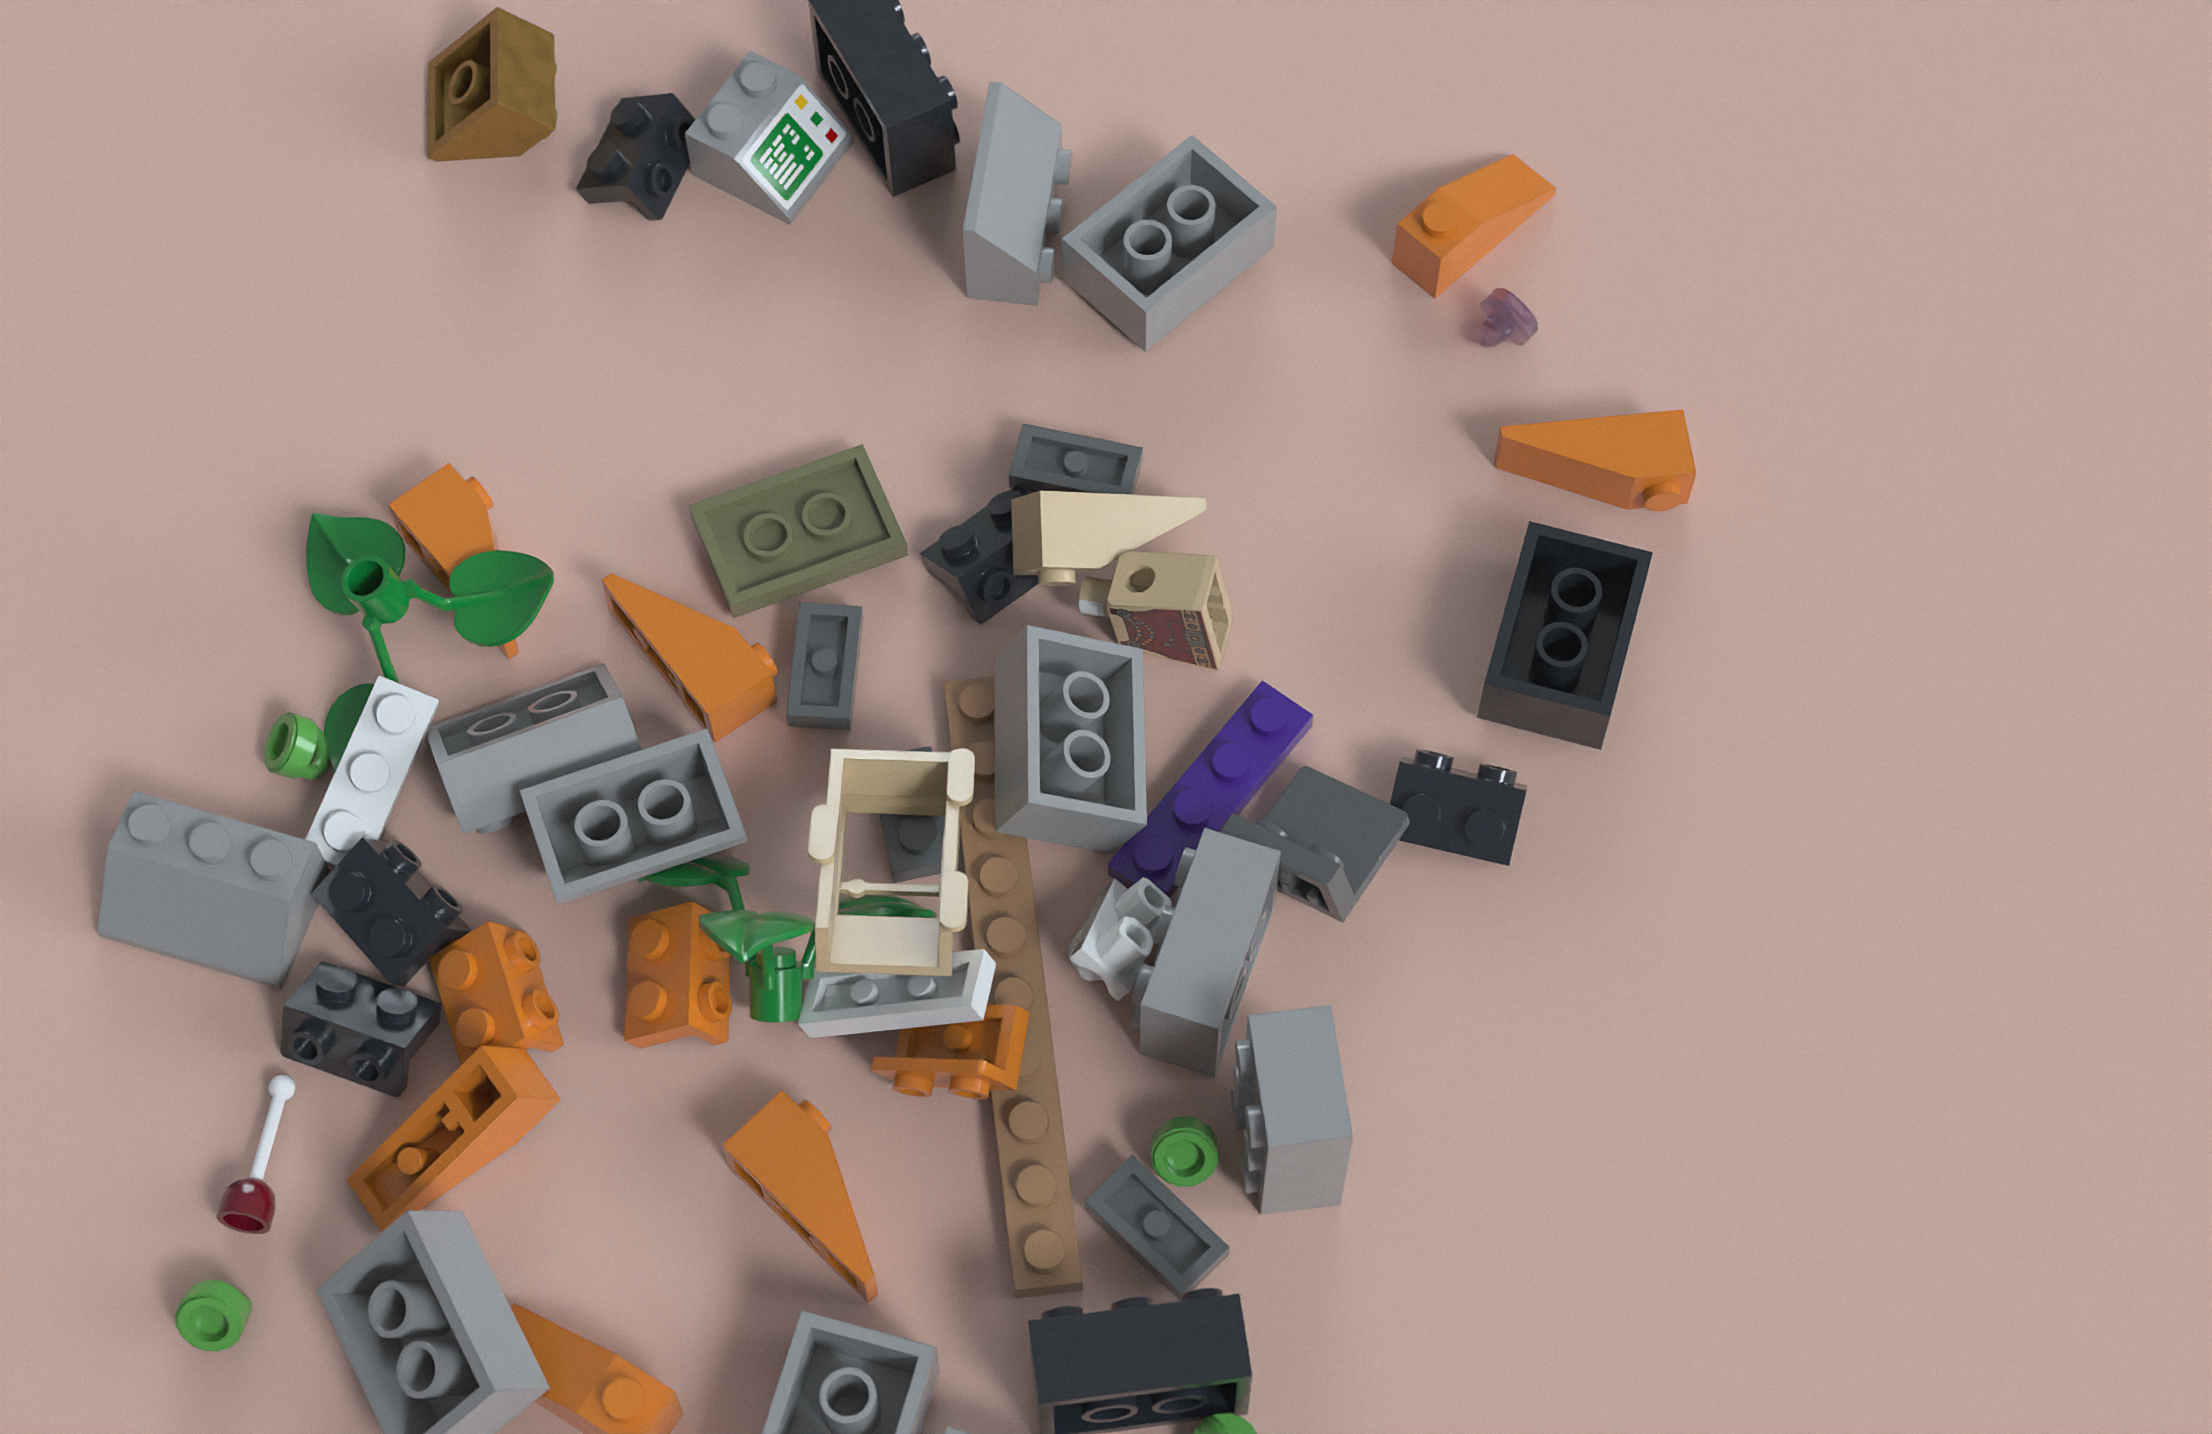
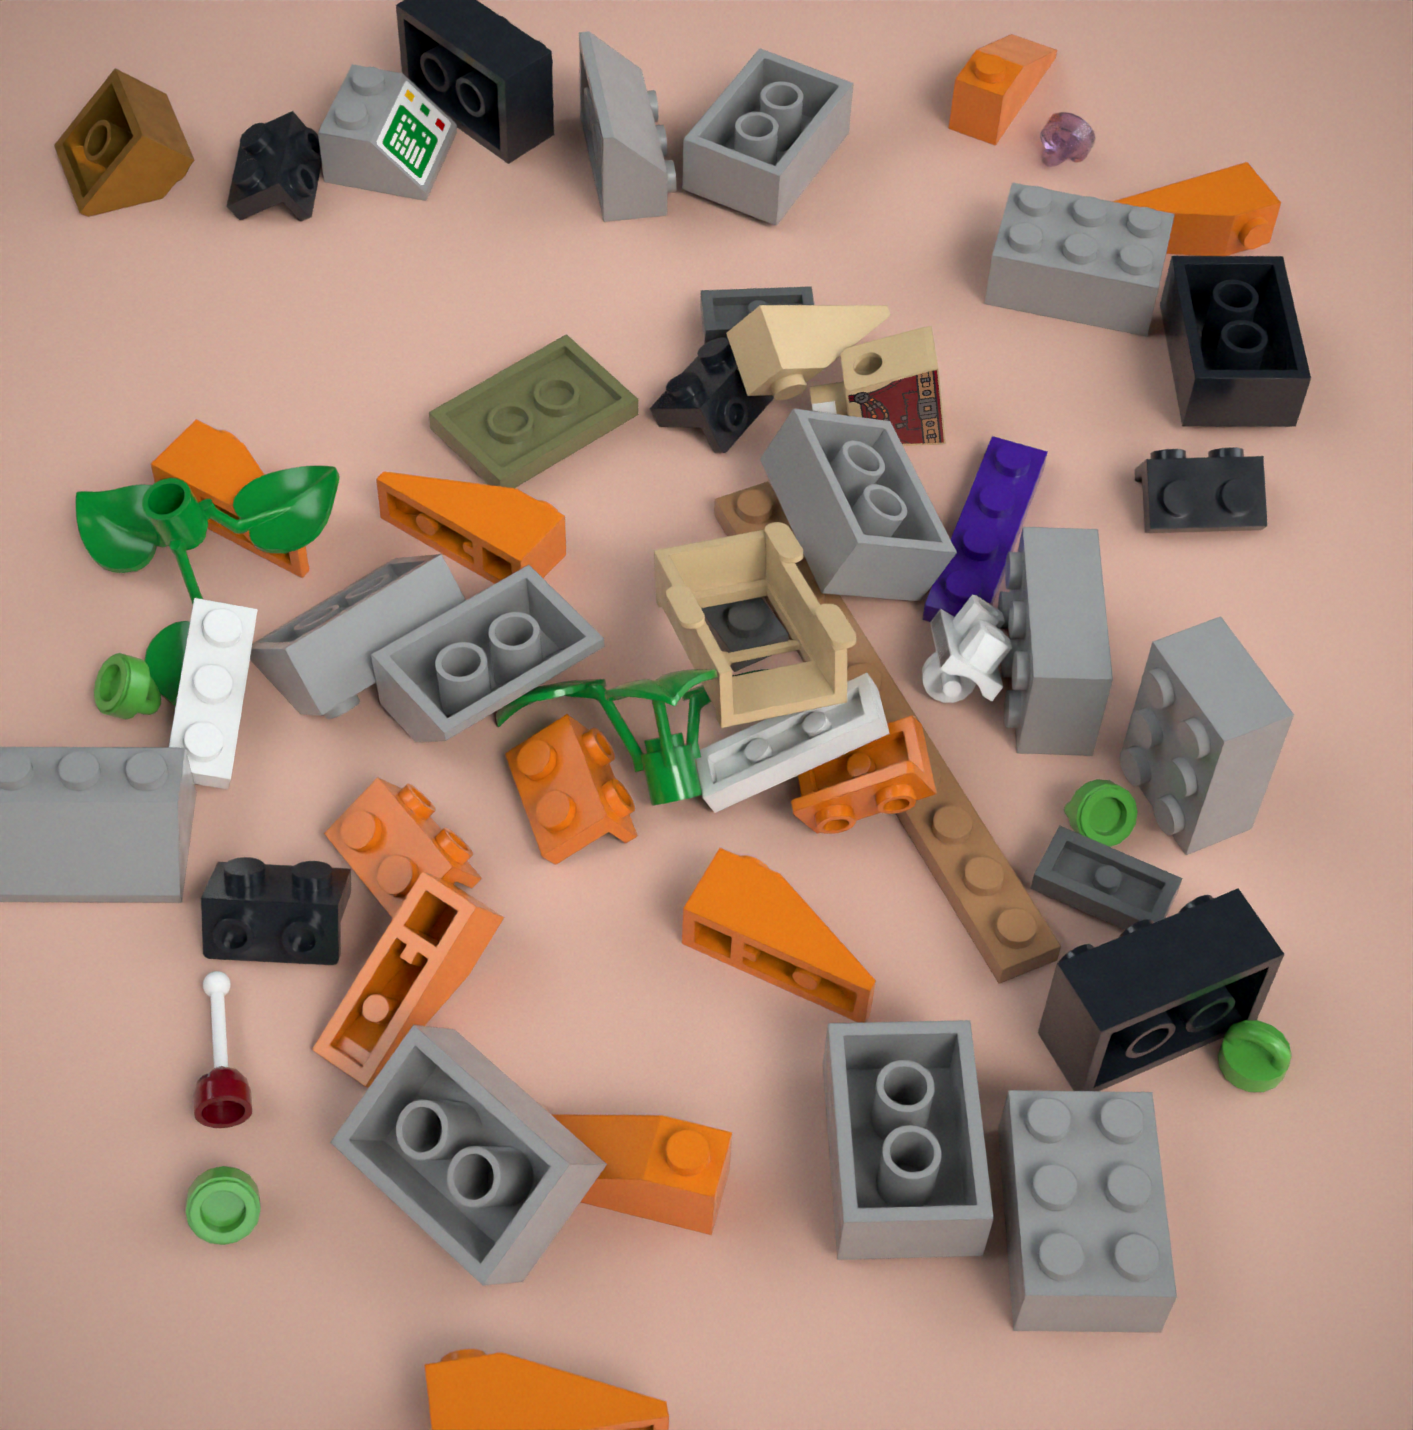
camera: 20 degrees left, 10 degrees down
(390, 907) = (268, 799): black bracket -> none
(825, 666) = (603, 511): dark grey plate -> none
(1327, 840) = (1130, 532): dark grey bracket -> none
(1447, 483) = (1079, 259): none -> light grey brick

